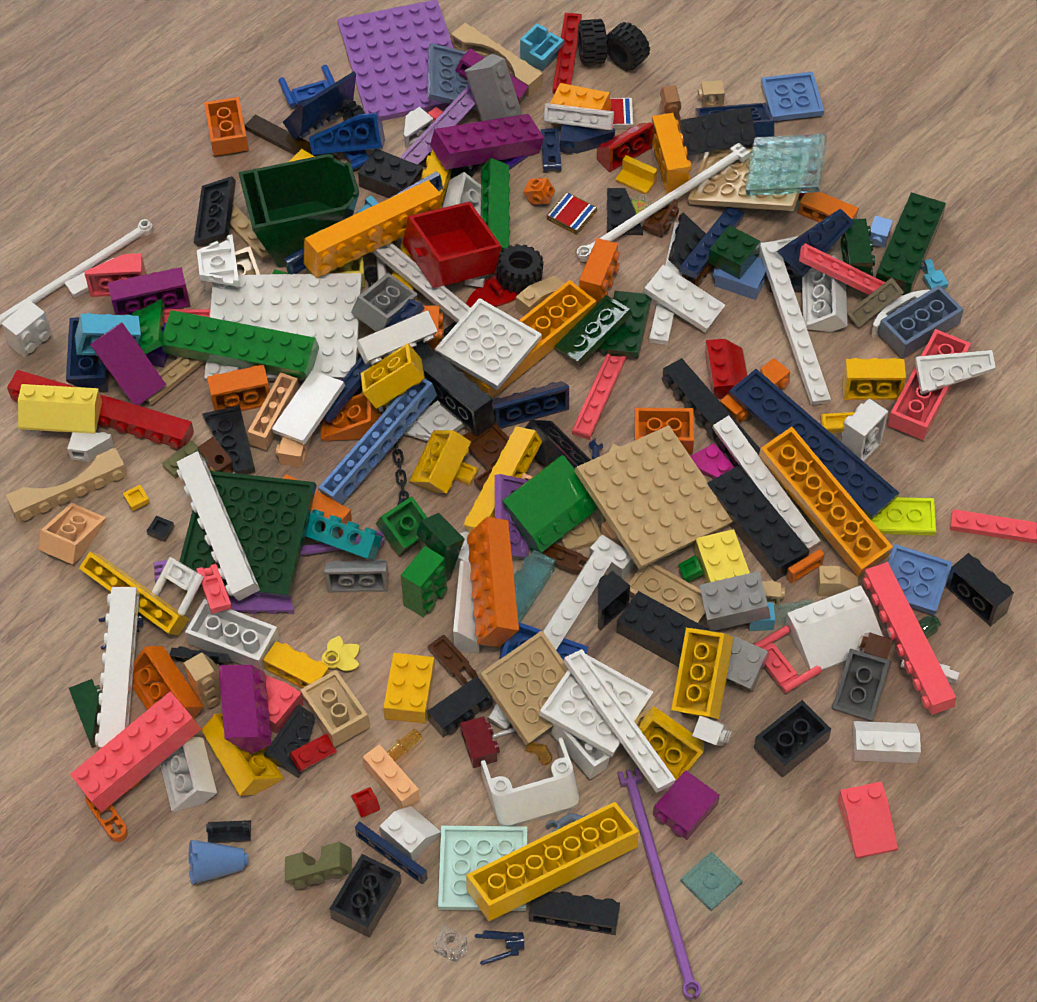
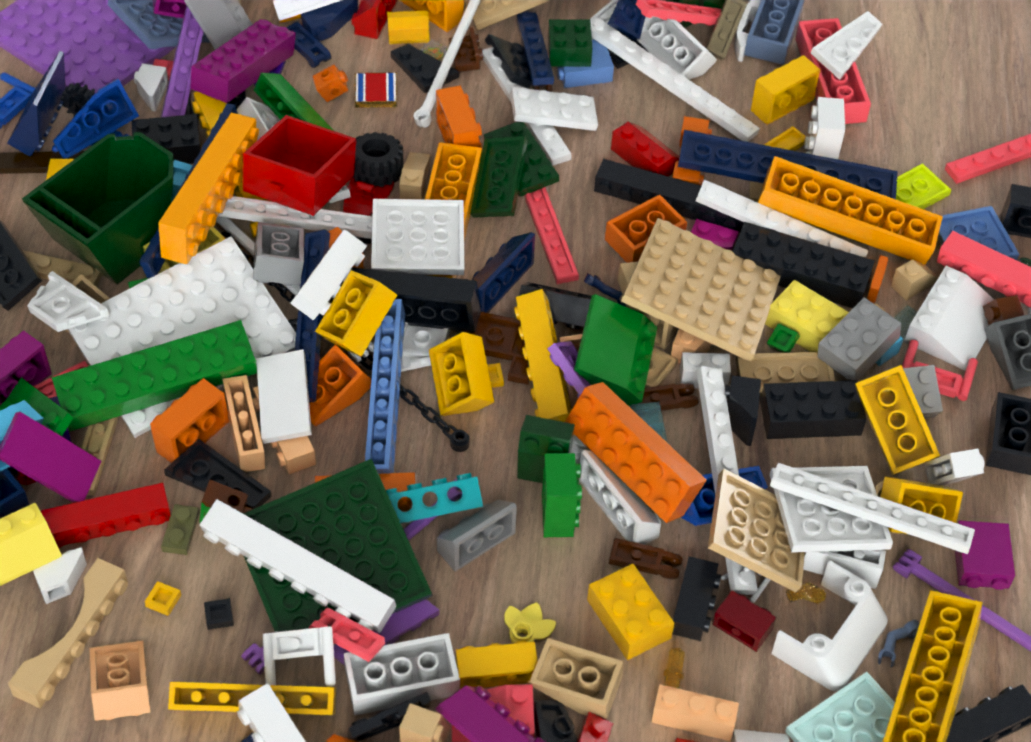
camera: 40 degrees left, 5 degrees down
(401, 525) = (485, 455): green brick -> none

